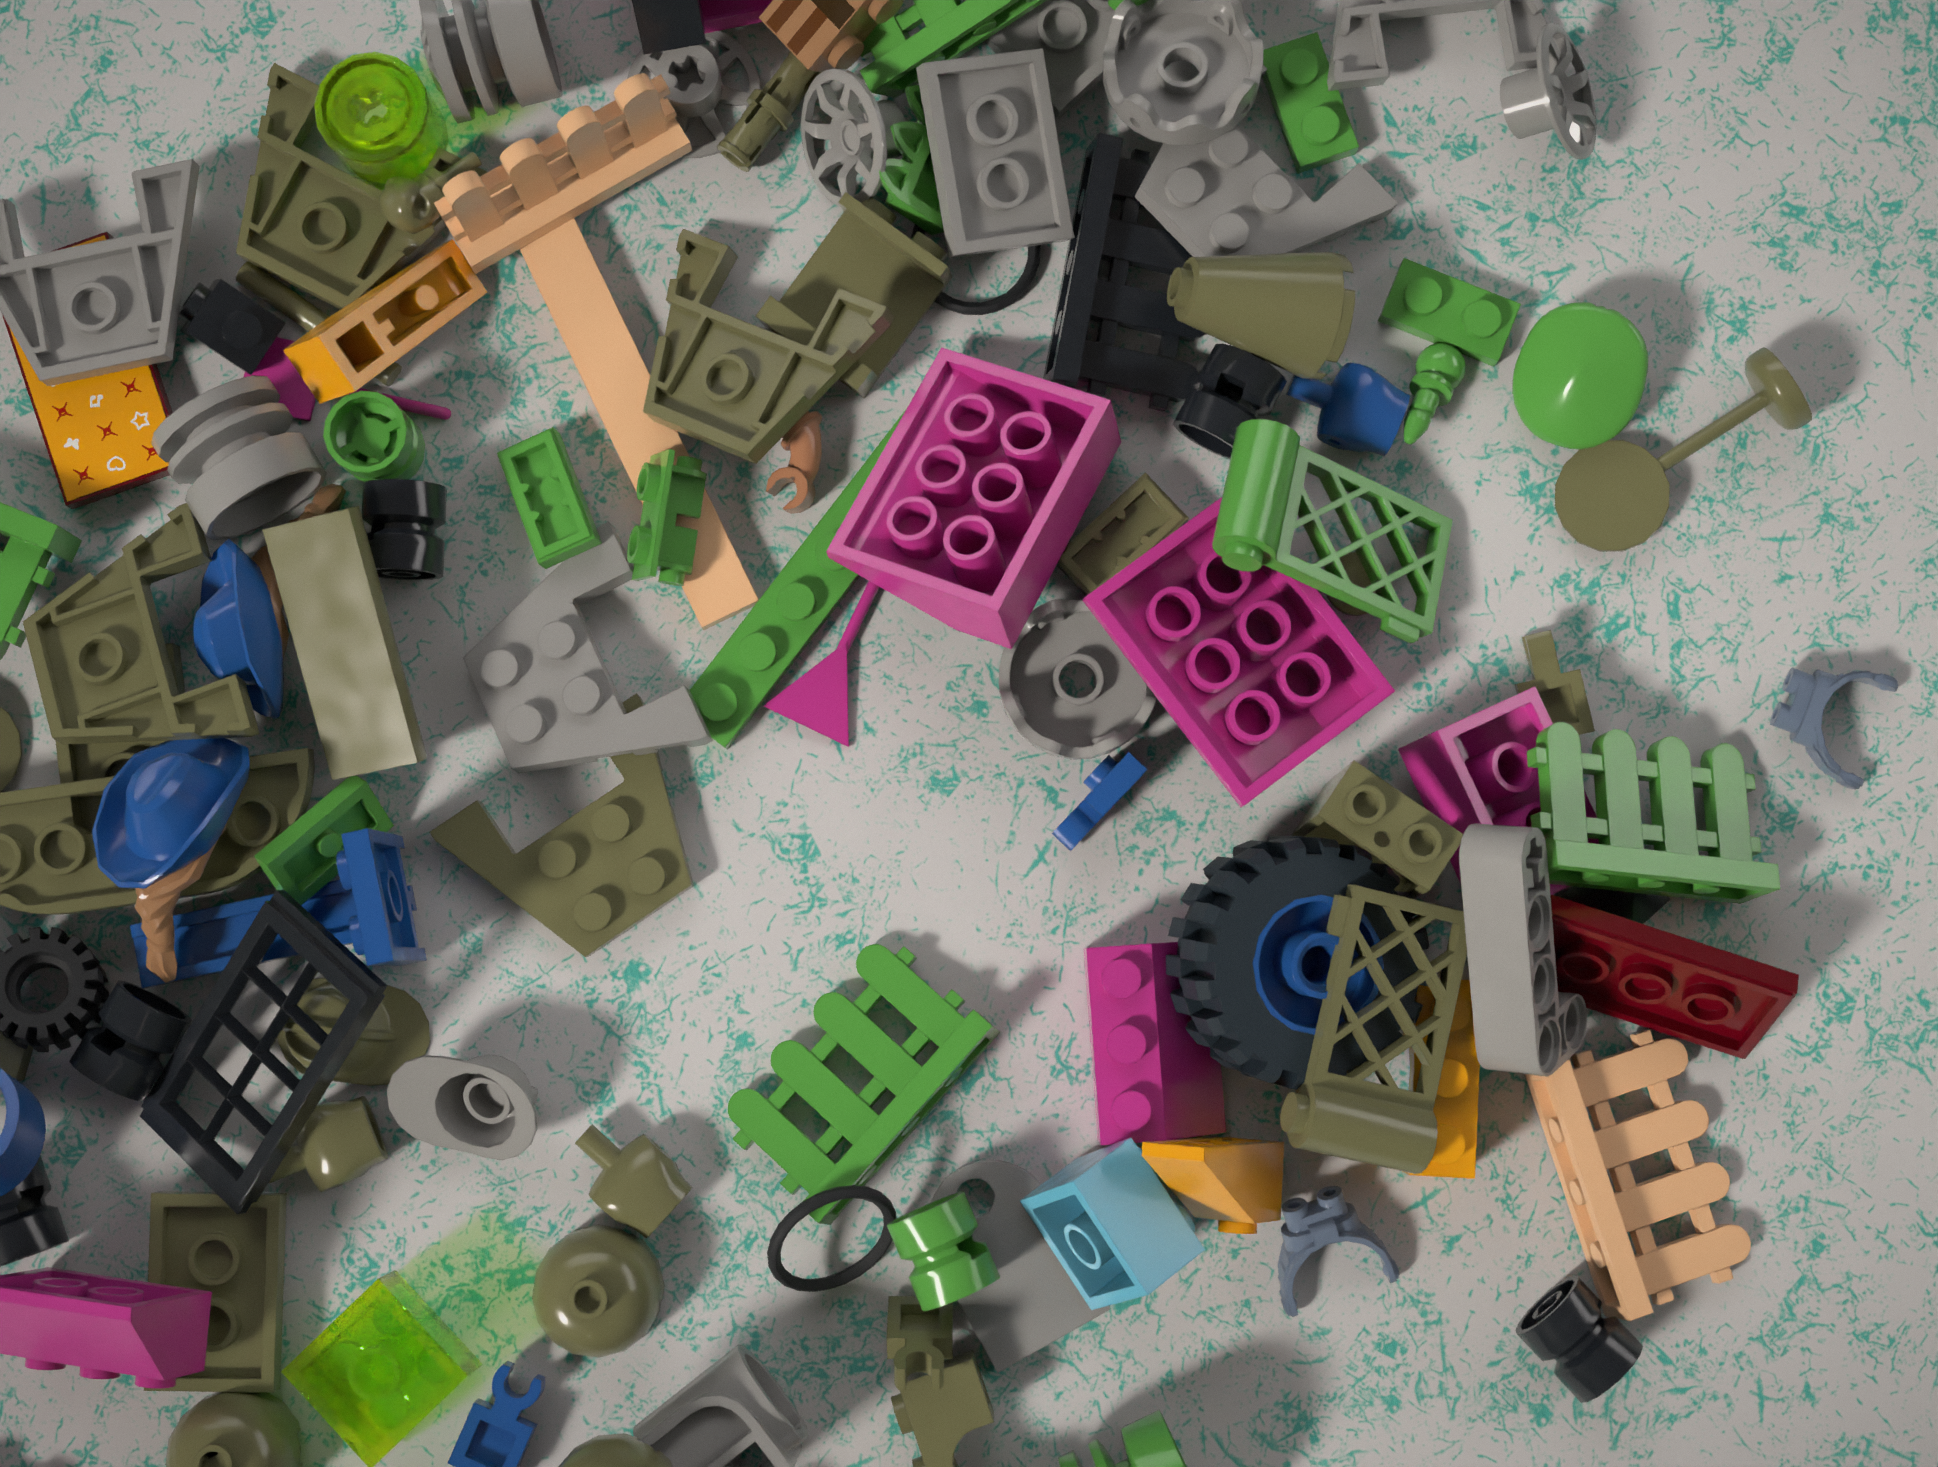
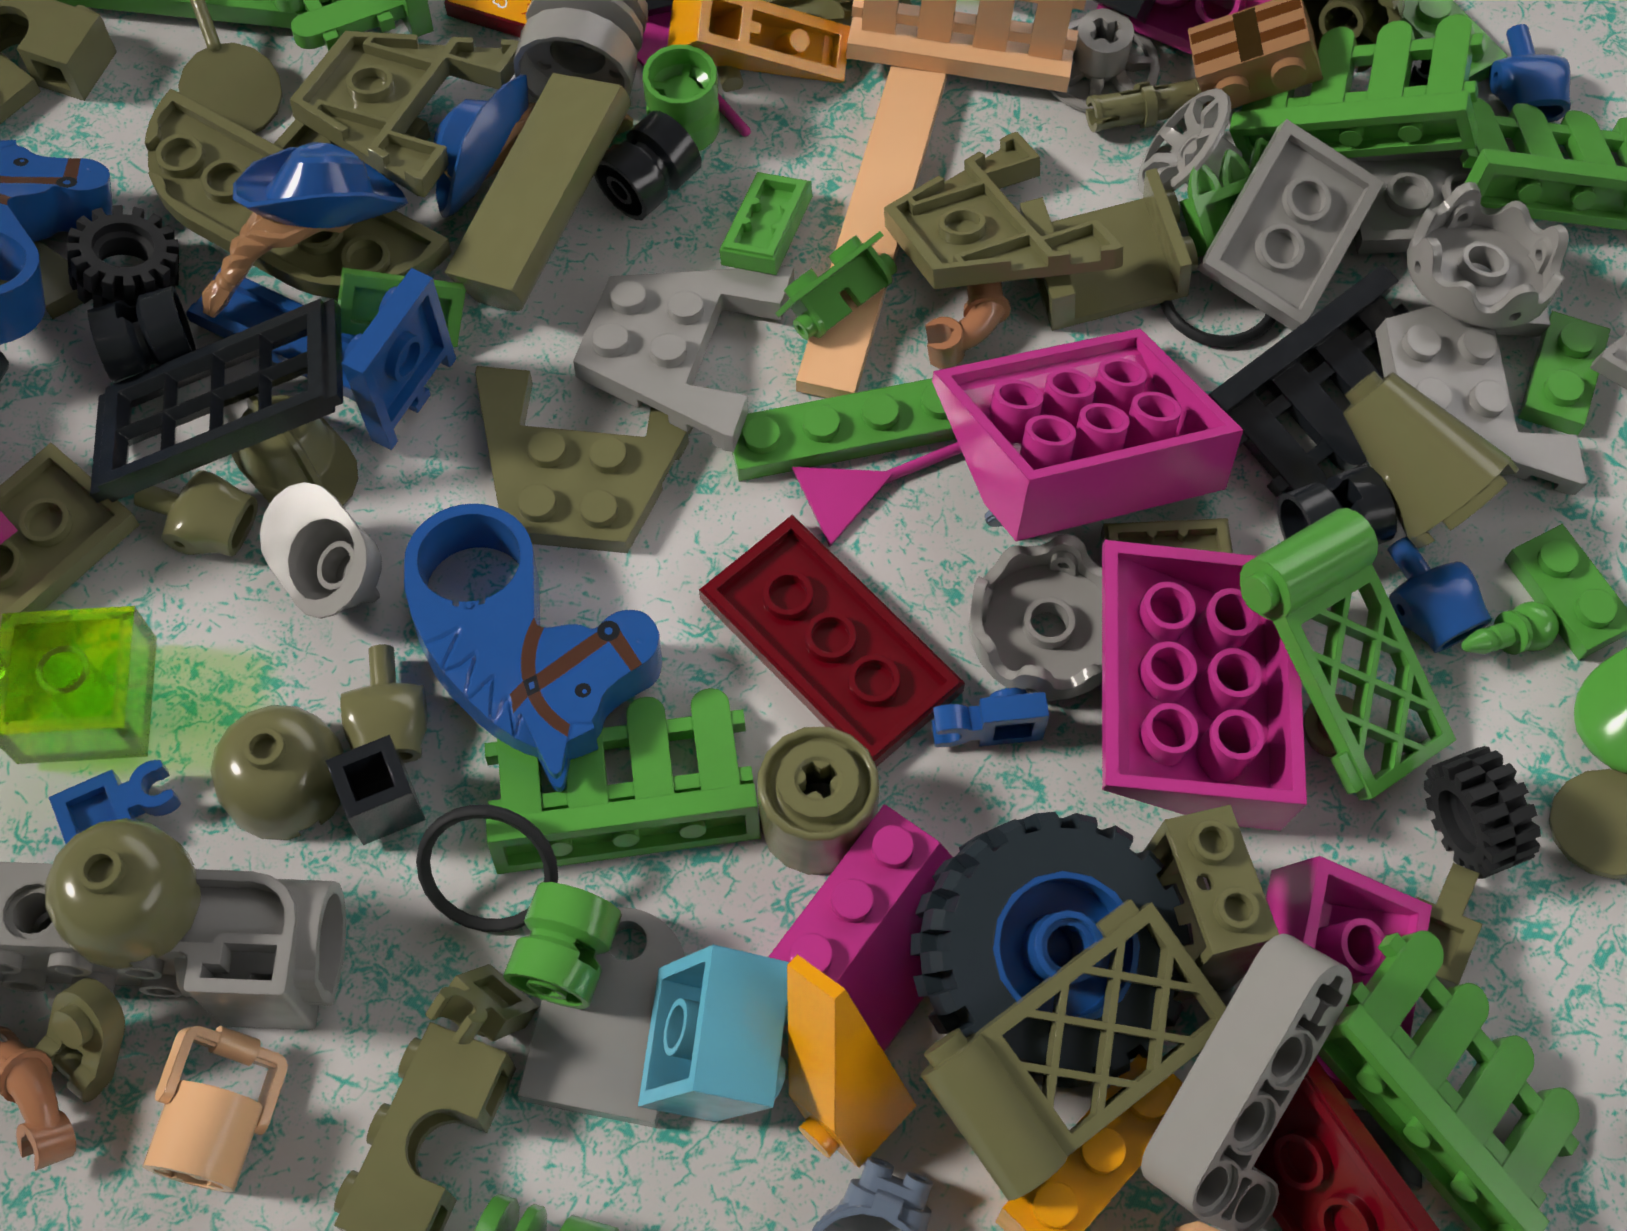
camera: 35 degrees right, 20 degrees down
(693, 1251) = (375, 790): none -> black brick
(730, 1074) = (516, 679): none -> blue animal
(918, 829) = (831, 639): none -> dark red tile
(1060, 962) = (813, 830): none -> olive piece
(1519, 580) = (1482, 811): none -> black tyre

